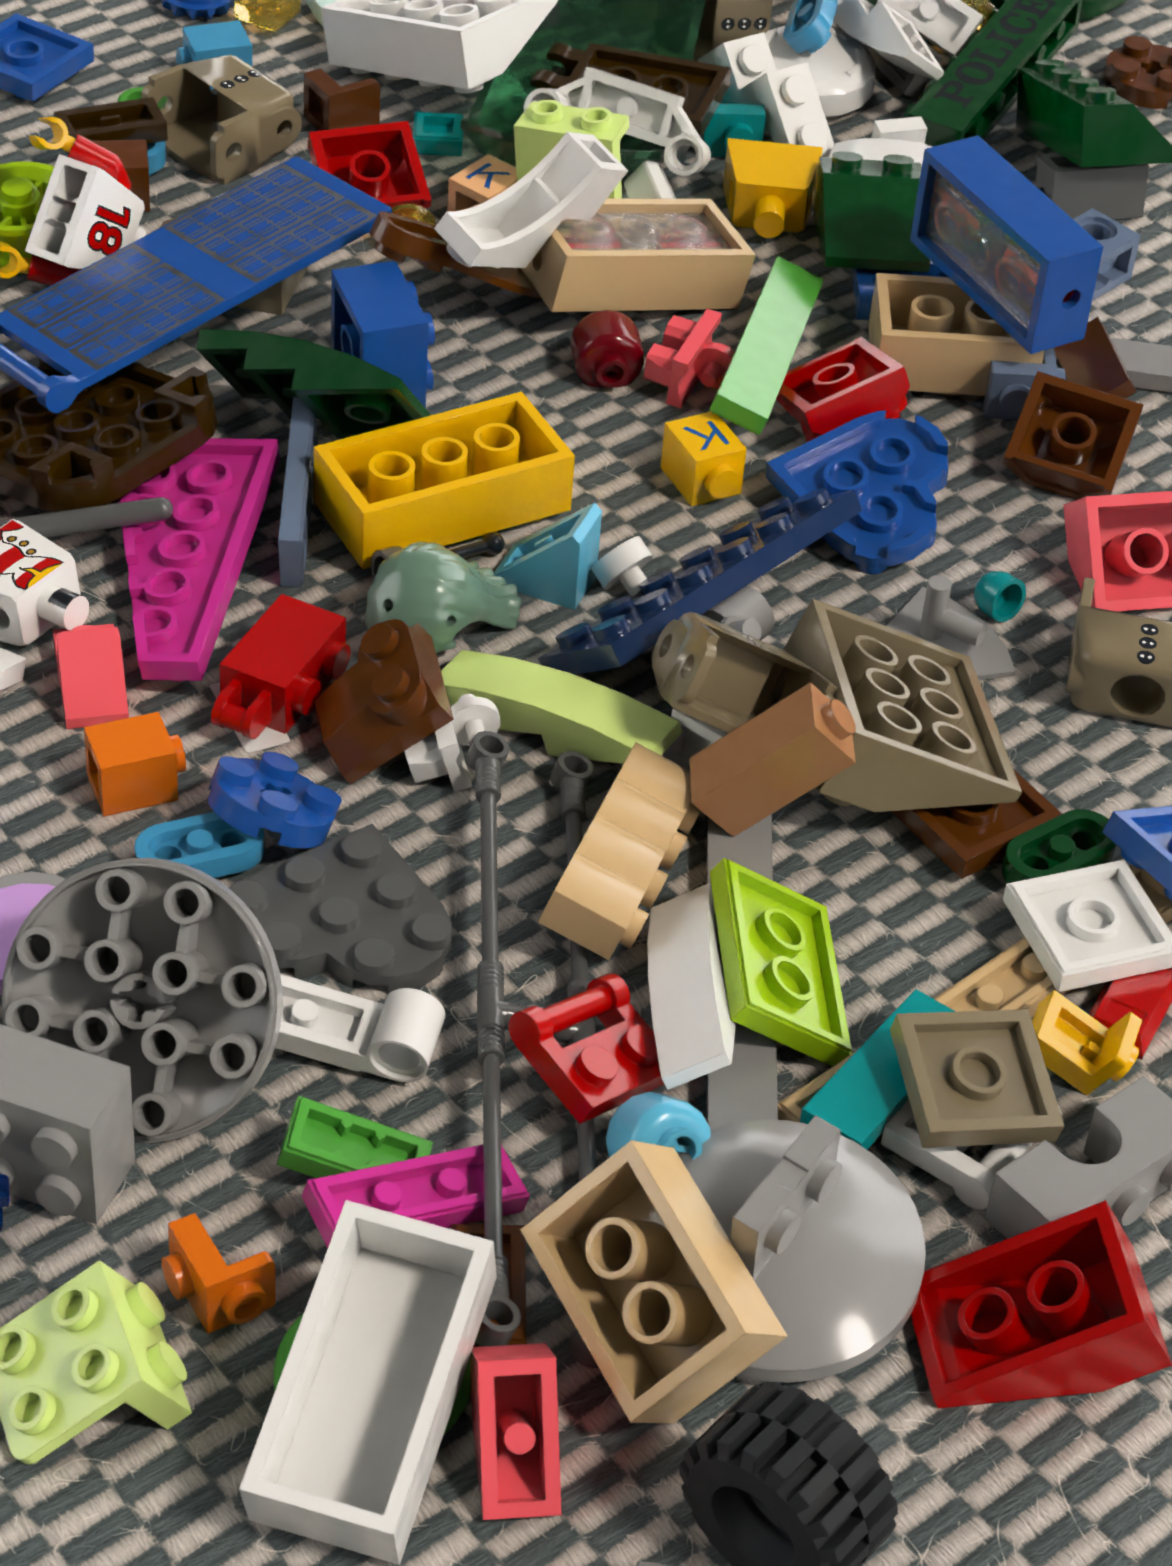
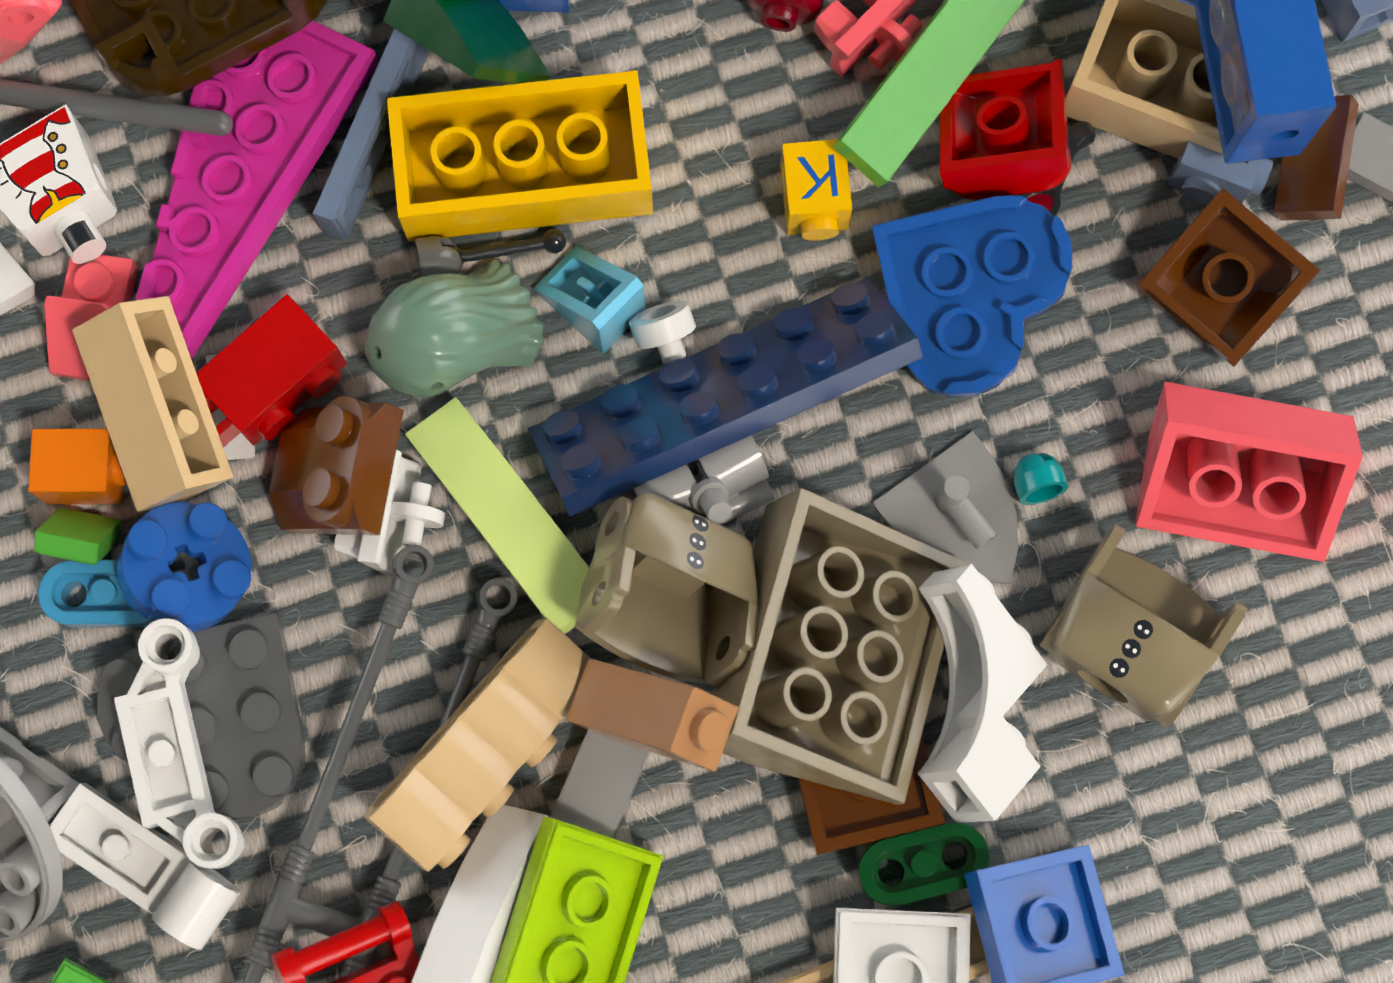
camera: 25 degrees right, 35 degrees up
(153, 807) = (77, 536): none -> bright green tile
(194, 677) = (152, 402): none -> tan brick
(331, 919) = (166, 751): none -> white plate
(1034, 698) = (991, 662): none -> white arch

